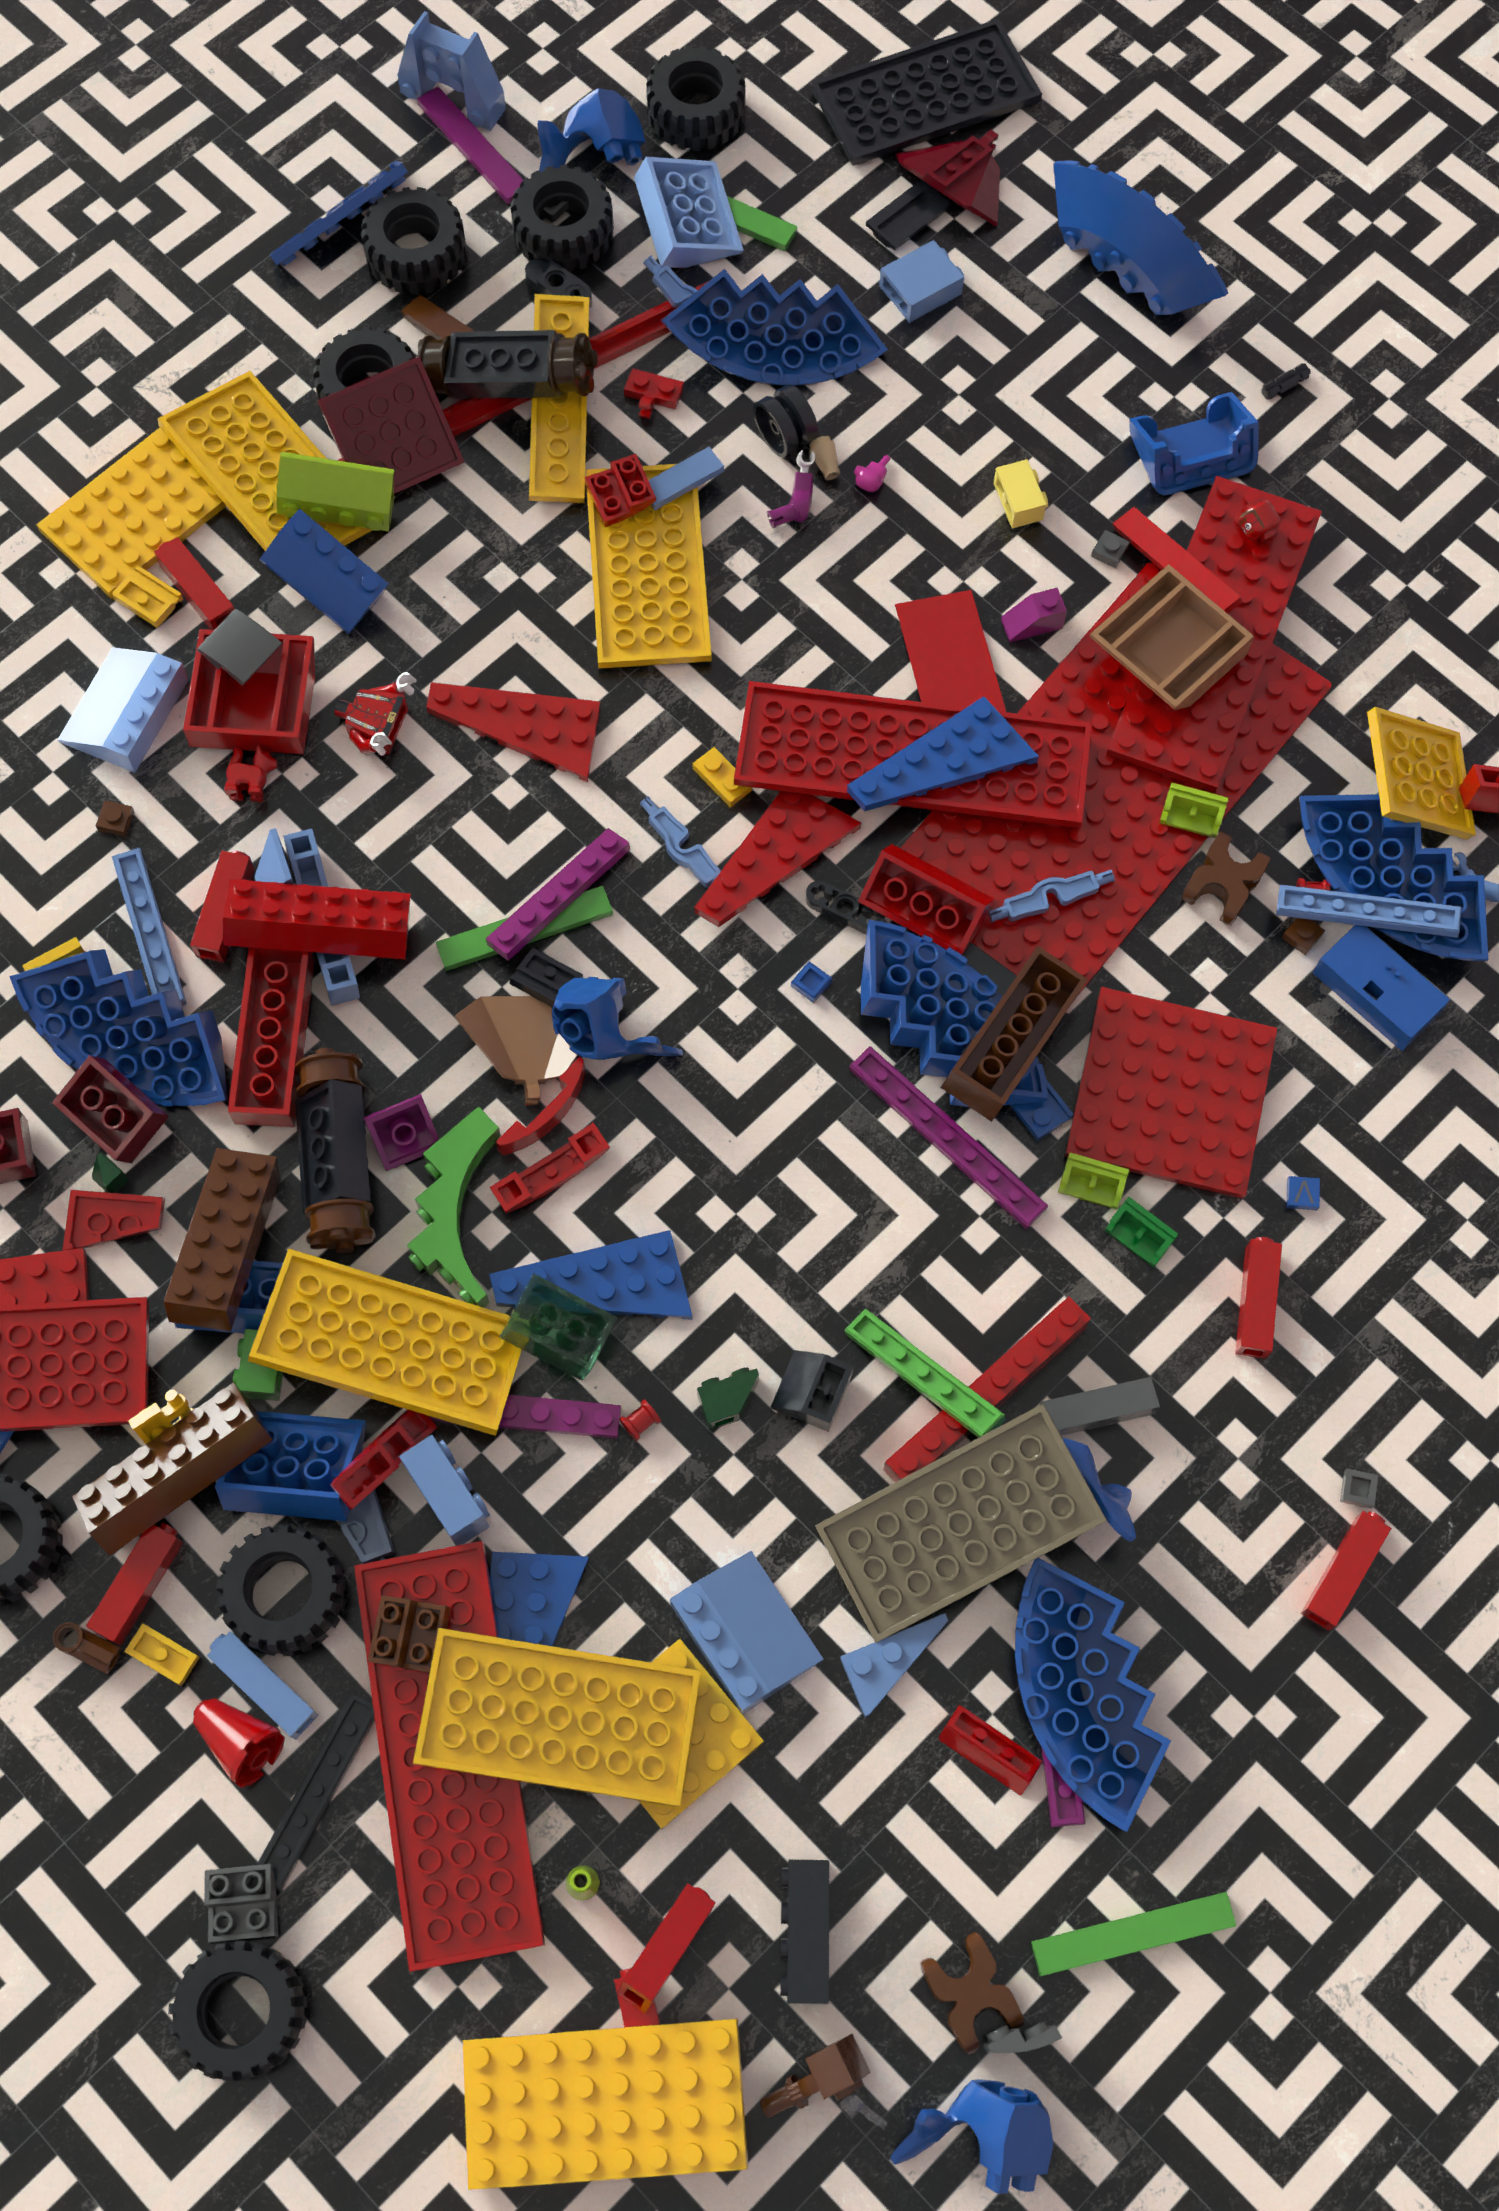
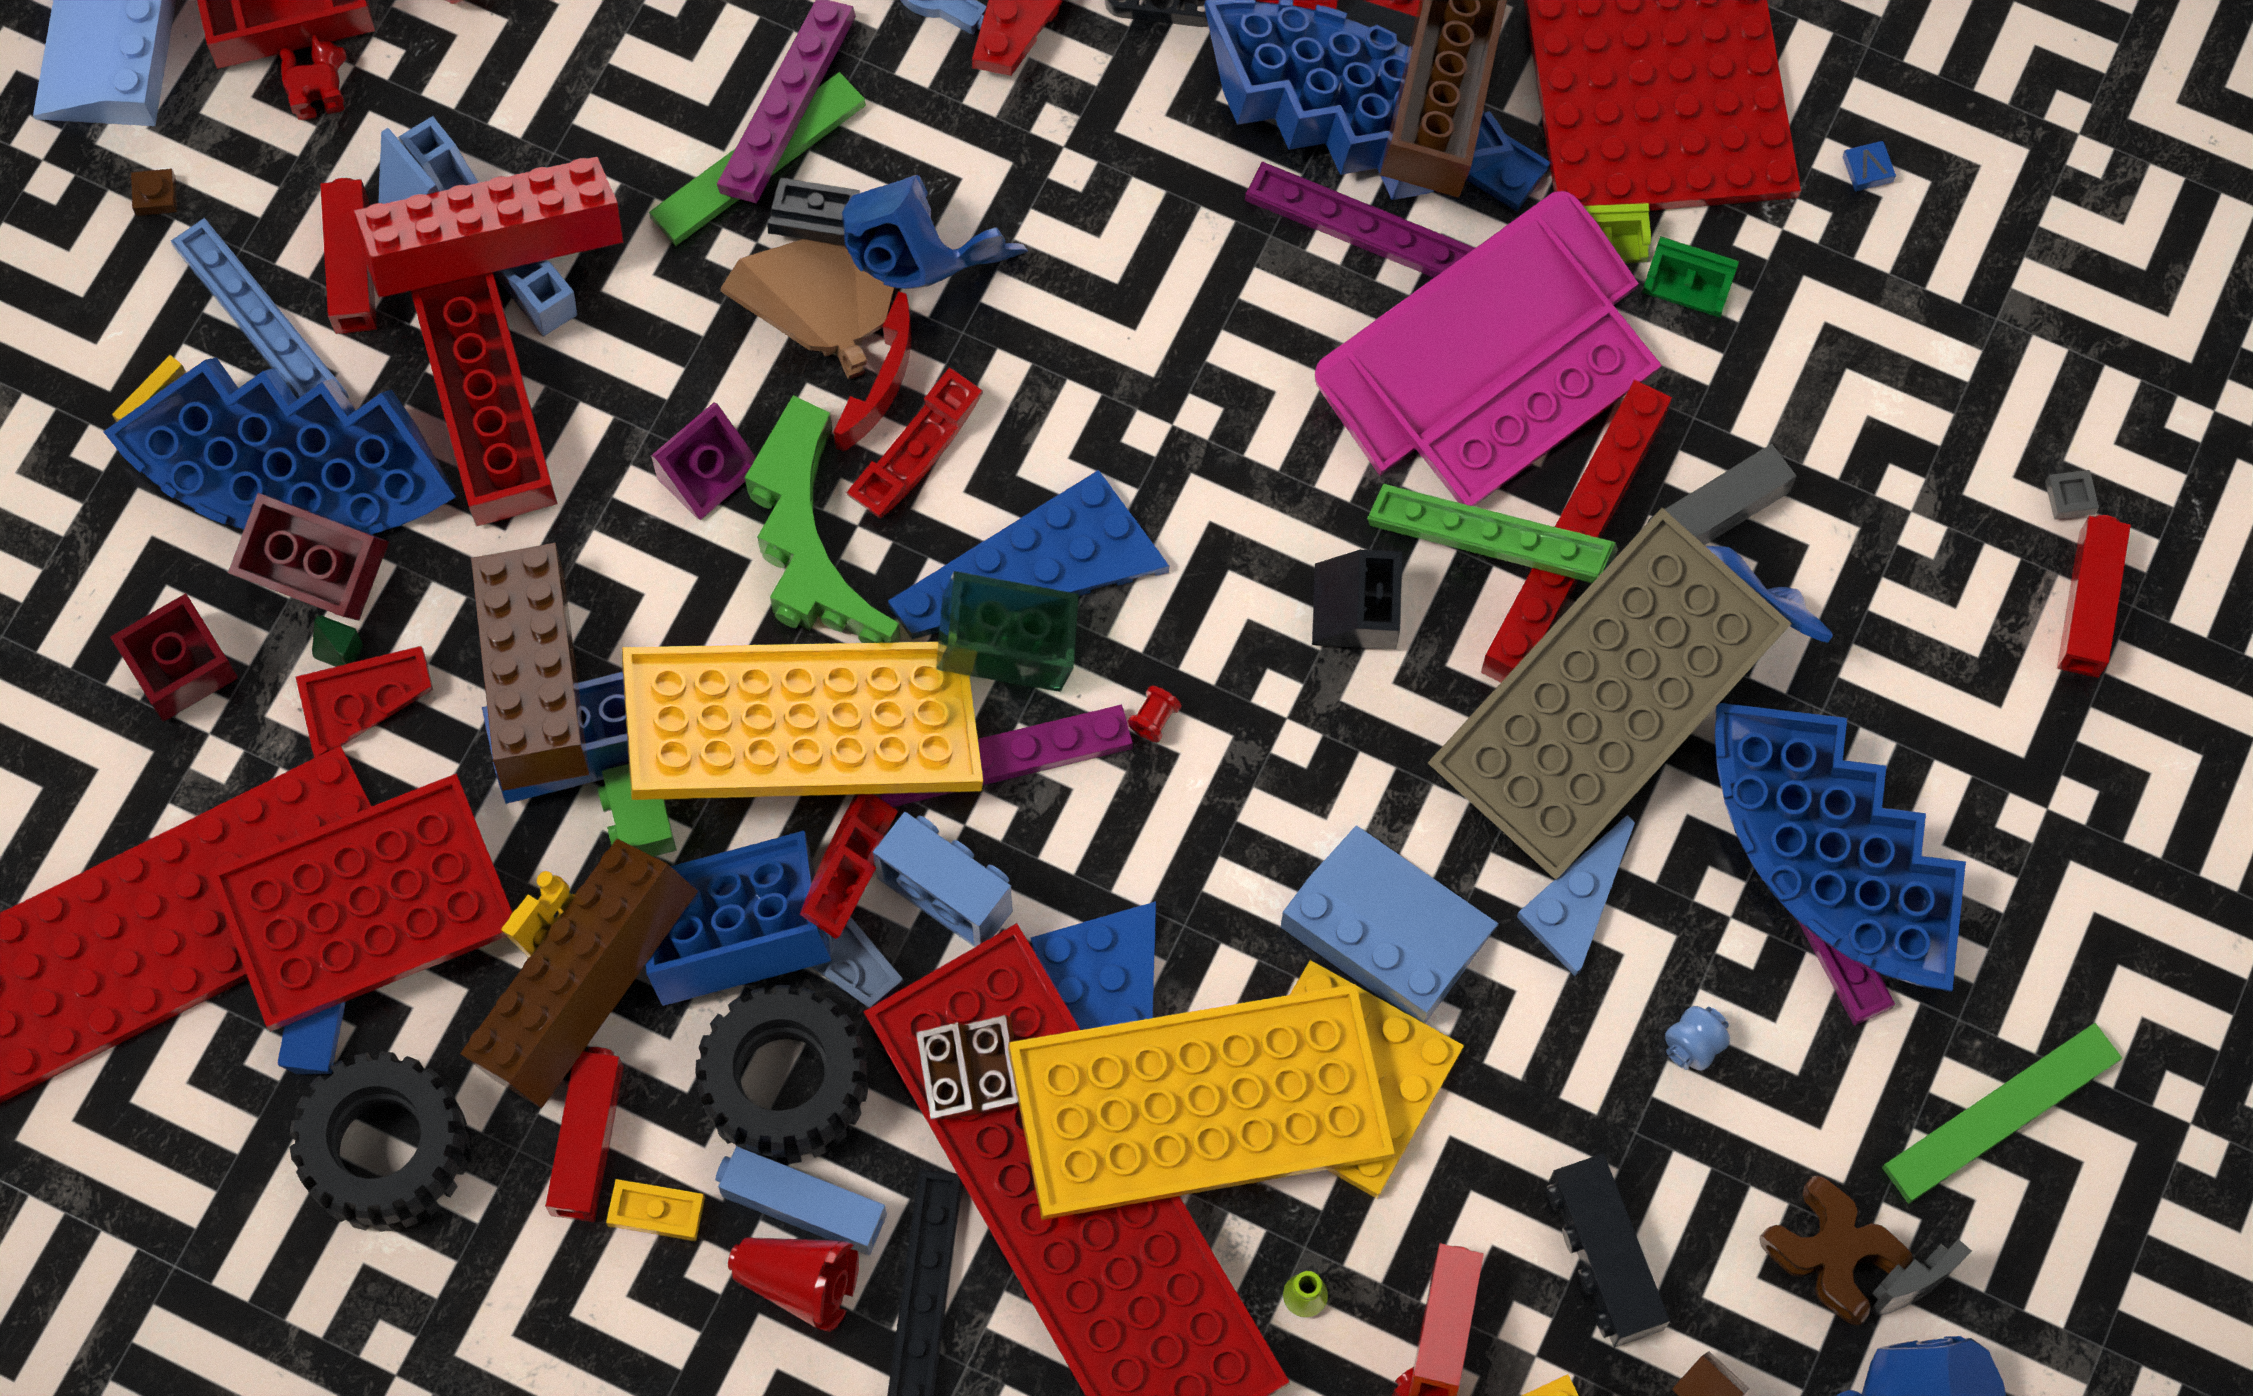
camera: 20 degrees left, 0 degrees up
(88, 1648) = (558, 1236): reddish brown piece -> none
(333, 1151) = (627, 511): black brick -> none
(727, 1398) = (1251, 652): dark green slope -> none
(811, 982) = (1155, 107): blue tile -> none
(931, 1797) = (1697, 1038): none -> medium blue piece
(978, 1242) = (1494, 354): none -> dark pink slope
(990, 1750) = (1745, 960): red slope -> none
(1258, 1298) = (1864, 308): red brick -> none

